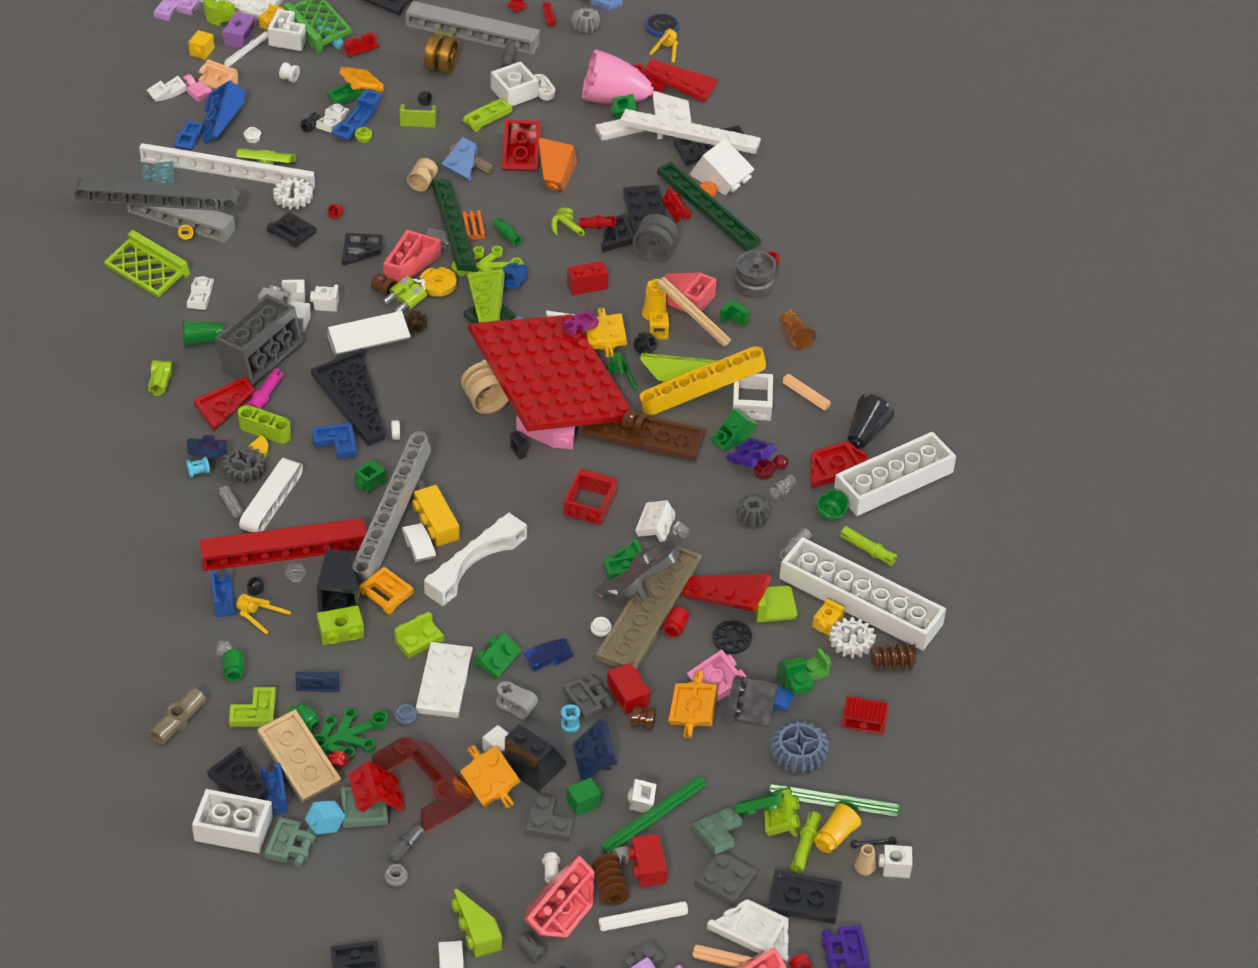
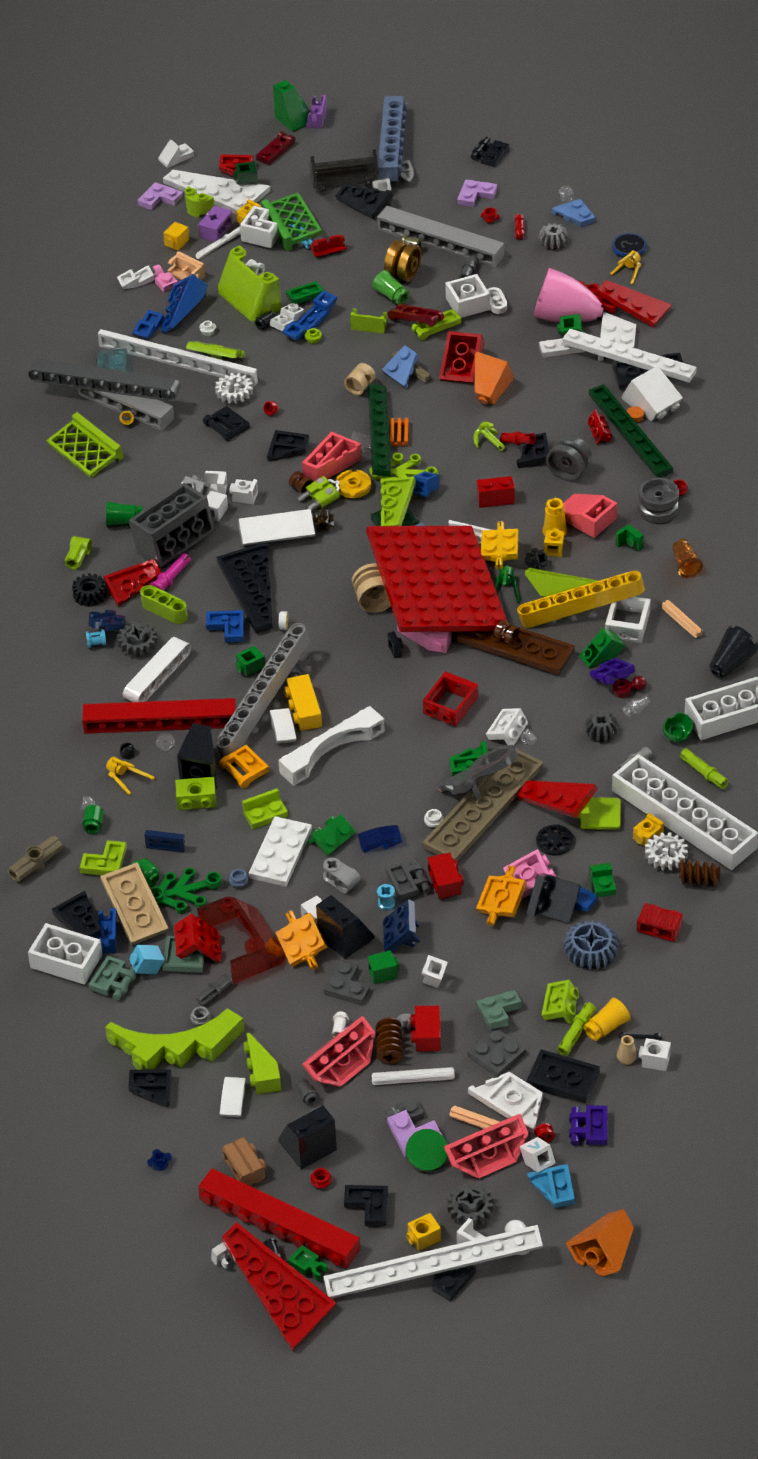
camera: 15 degrees right, 0 degrees up
(180, 423) = (89, 582): none -> black tyre
(200, 293) = (129, 477): white slope -> none
(223, 595) = (96, 755): blue hinge -> none
(231, 501) = (120, 672): light grey axle -> none
(262, 444) = (158, 624): yellow tile -> none
(286, 92) = (246, 290): none -> lime windscreen
(338, 759) = (169, 910): red plate -> none
(361, 79) = (321, 281): light orange plate -> none
(377, 915) = (178, 1048): none -> lime arch
(425, 98) = (379, 304): black hinge -> none
(433, 81) = (390, 287): none -> bright green plant
(466, 105) = (417, 314): none -> dark red plate
(507, 232) = (429, 441): green pin -> none
(582, 321) = (476, 533): magenta plate -> none
(641, 202) = (569, 421): black plate -> none
(643, 717) = (453, 903): reddish brown wheel -> none
(653, 814) = (444, 989): green axle -> none
(675, 621) = (503, 820): red brick -> none
(693, 311) = (587, 532): tan axle -> none
(750, 805) = (532, 991): green plate -> none
(818, 666) = (626, 875): bright green bracket -> none
(833, 460) = (689, 685): red wing -> none
(833, 799) = (626, 998): axle -> none

